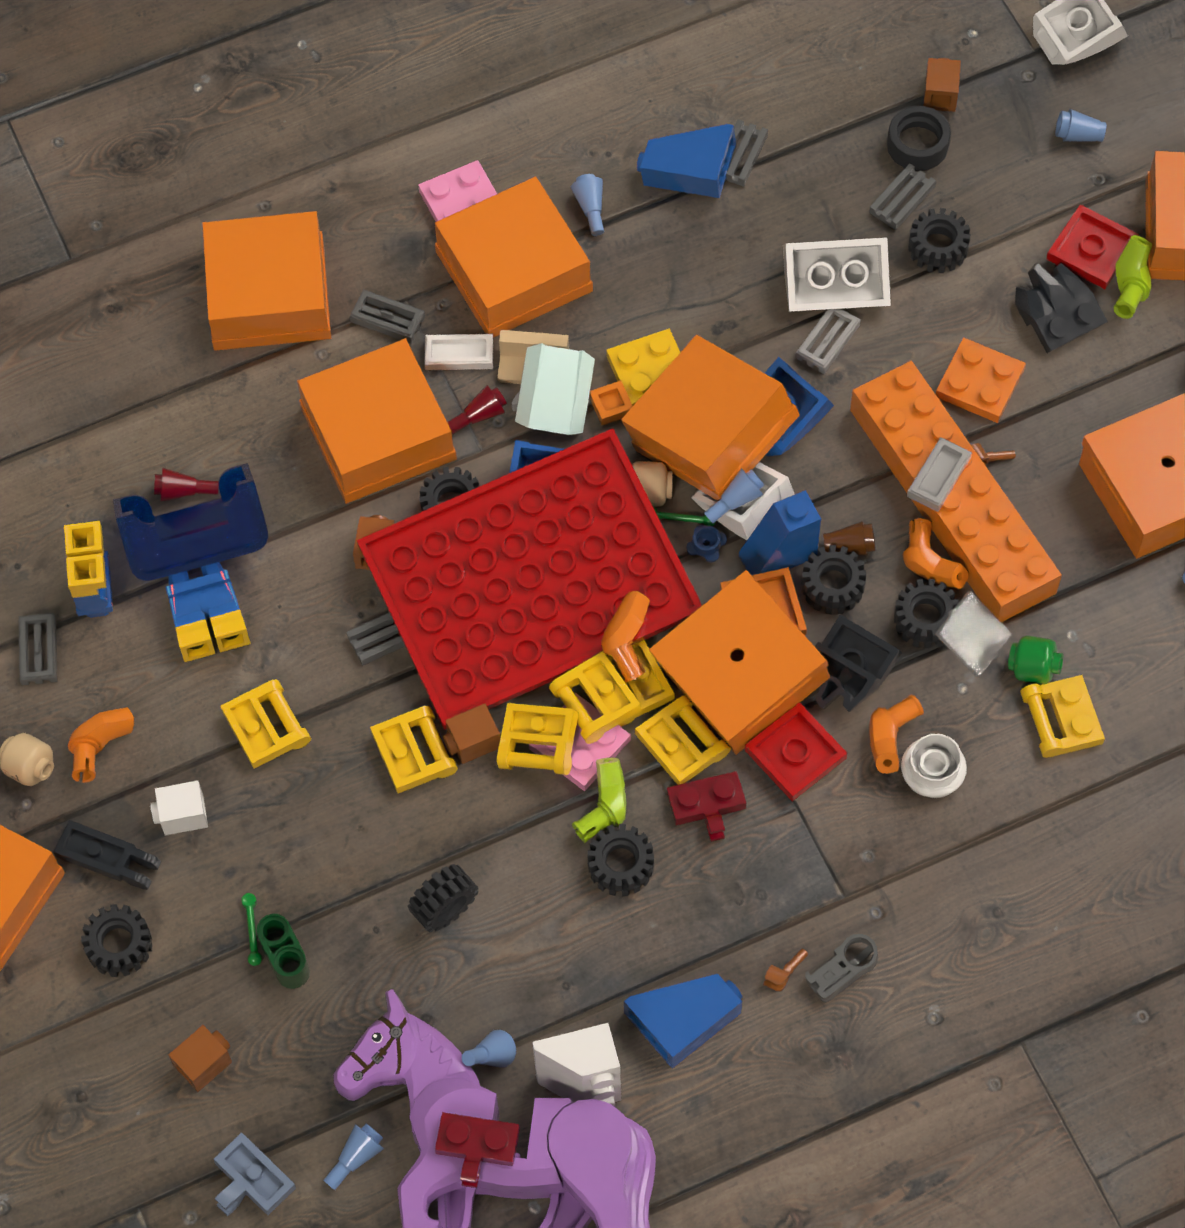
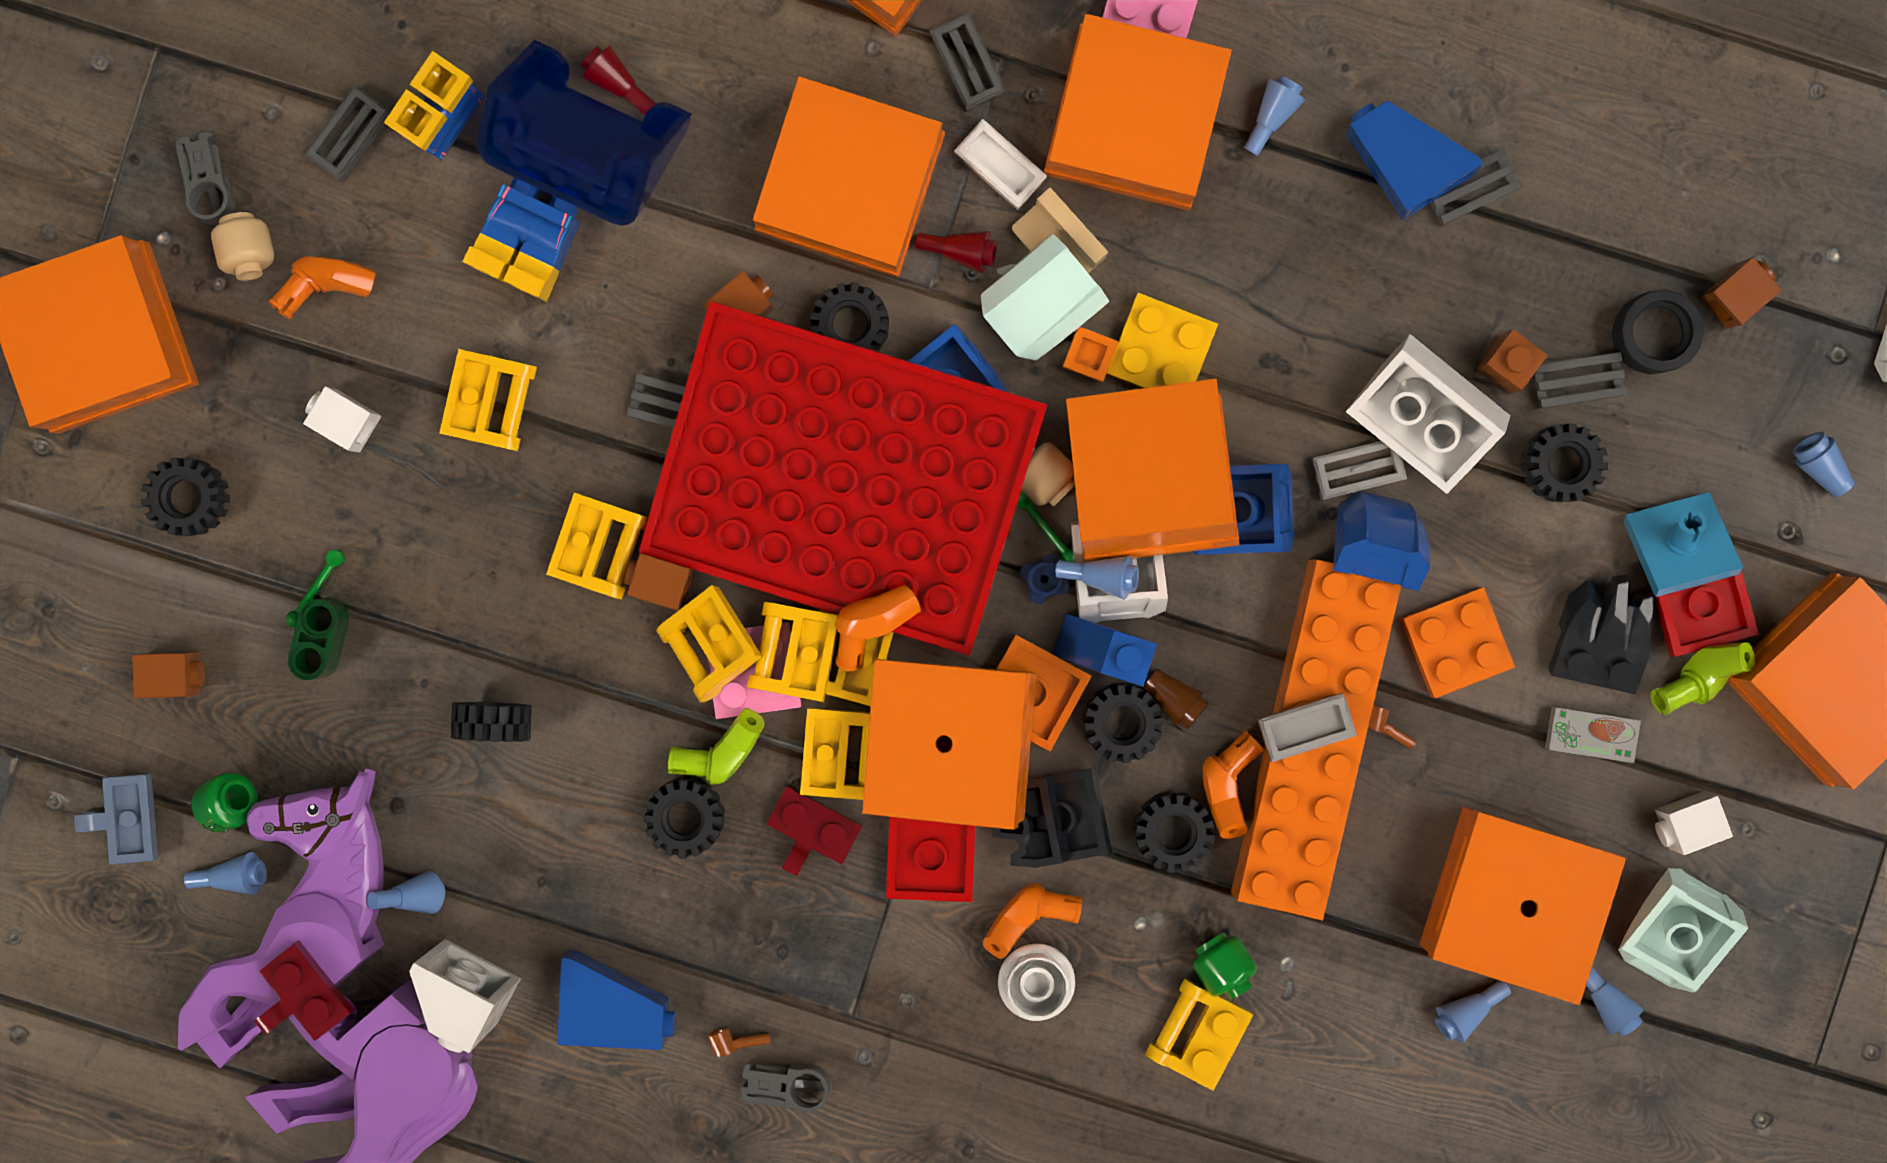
camera: 40 degrees right, 25 degrees up
(104, 854) = (240, 402): black hinge -> none
(311, 1101) = (223, 802): none -> green head
(854, 213) = (1511, 362): none -> dark orange brick
(880, 353) = (1381, 540): none -> blue slope
(973, 634) = (1194, 892): clear piece -> none
(1047, 224) = (1682, 544): none -> dark azure tile
(1108, 363) = (1592, 734): none -> light grey tile

